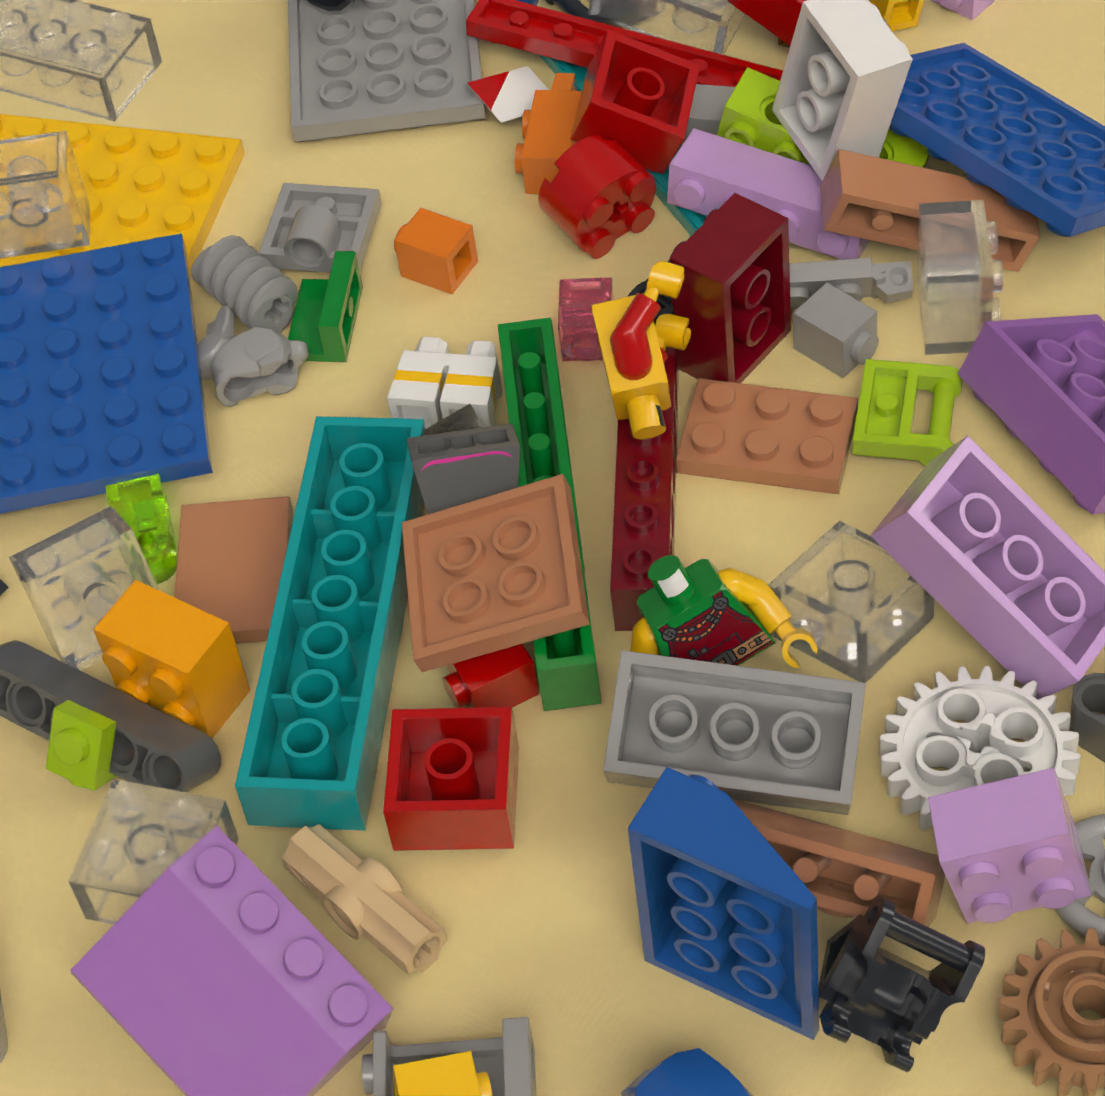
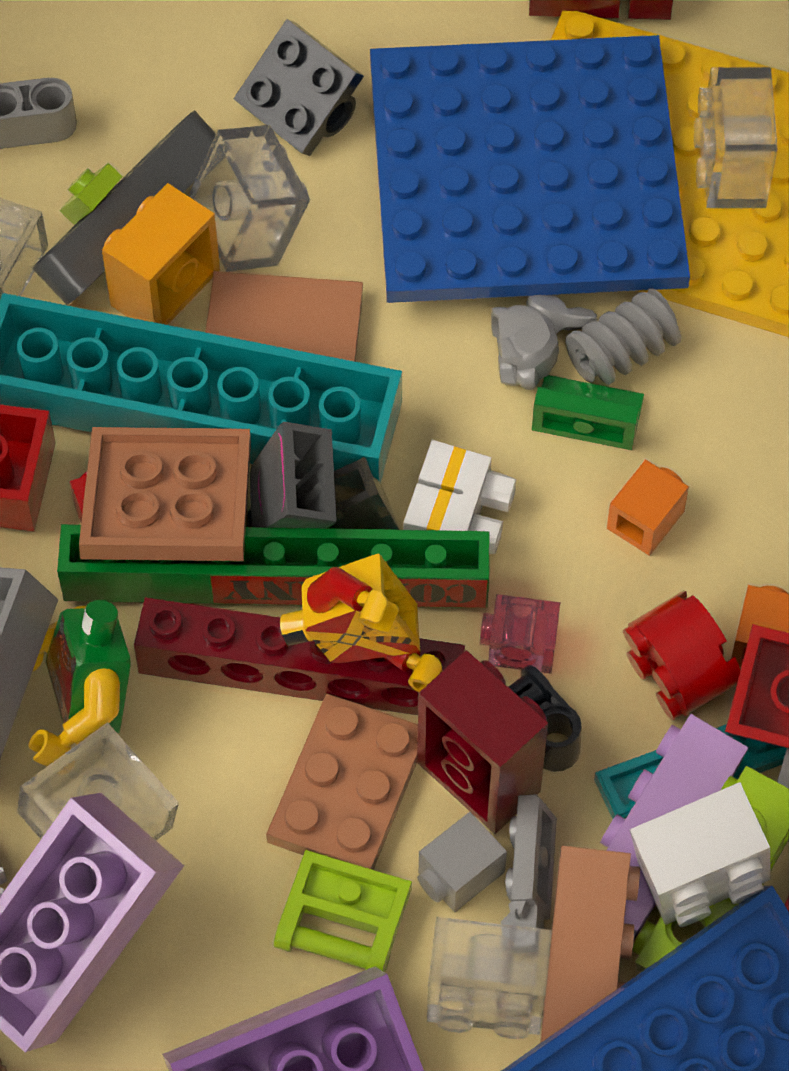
camera: 90 degrees right, 10 degrees up
(147, 512) = (340, 253): clear neon green leg -> none
(316, 222) = (704, 409): light grey plate -> none

